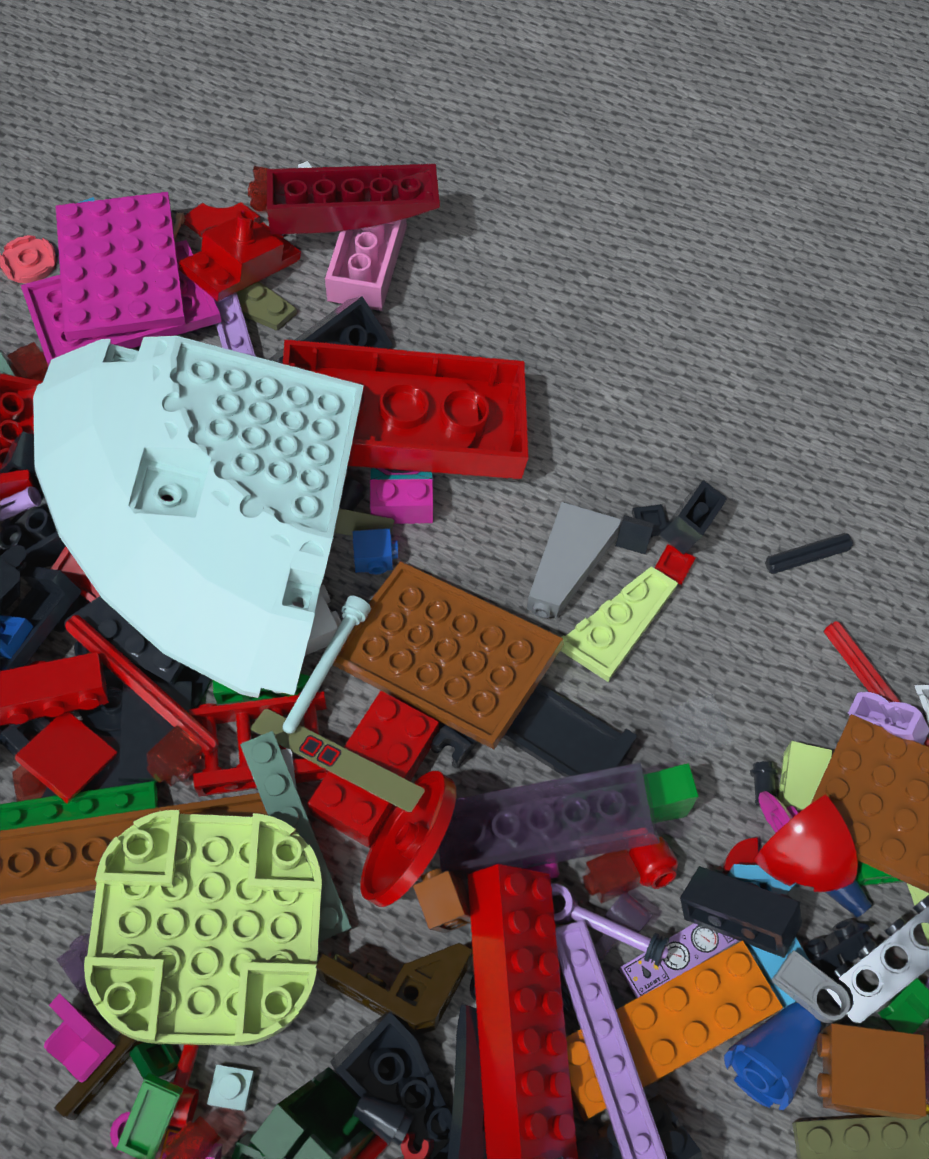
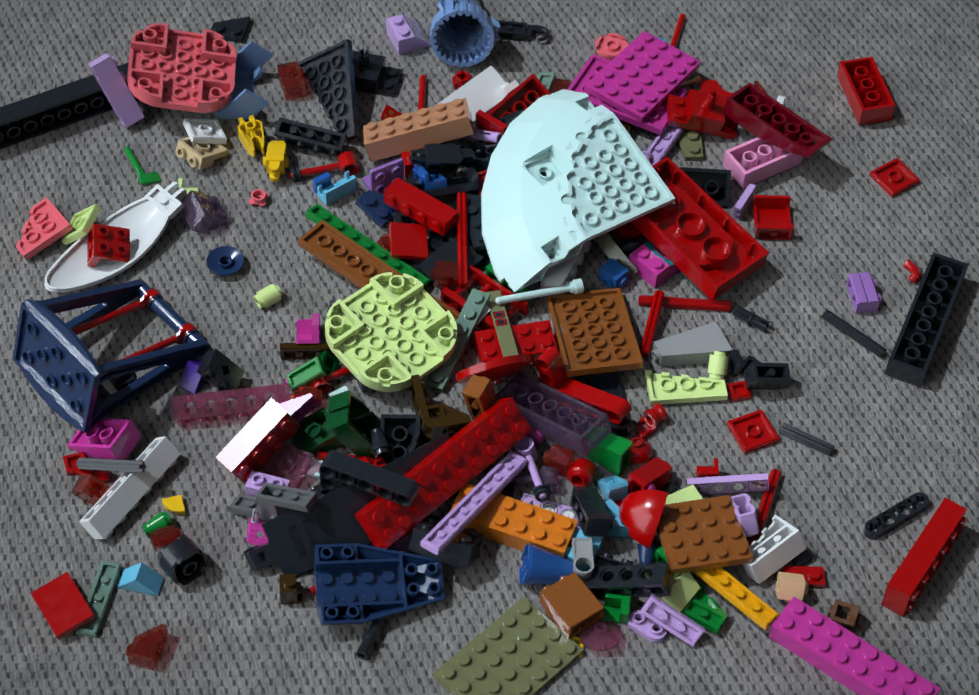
camera: 50 degrees right, 10 degrees down
(84, 177) = (678, 29): none -> red bar
(379, 87) = (865, 90): none -> red brick
(406, 323) = (744, 201): none -> lavender tile
(456, 317) = (772, 217): none -> red panel
(487, 512) = (688, 303): none -> red axle
(489, 570) = (652, 323): none -> red axle
(516, 164) = (894, 177): none -> red tile
(536, 755) = (553, 375): none -> red beam
(581, 460) = (750, 318): none -> black axle
(626, 555) = (718, 365): none -> yellowish green brick
(635, 690) = (656, 414): none -> red wheel
(639, 719) = (645, 428): none -> red tile
(652, 322) = (863, 292): none -> medium lavender brick
(663, 251) = (914, 270): none -> red arm
(670, 752) = (641, 450): none -> red brick
(697, 378) = (854, 333): none -> black axle
(706, 840) = (613, 487): none -> medium azure slope
(738, 788) = (654, 472): none -> red slope
(748, 600) = (753, 431): none -> red tile
(752, 296) = (926, 319): none -> black brick
(777, 705) = (708, 471): none -> red panel
(818, 698) = (730, 483): none -> lavender tile

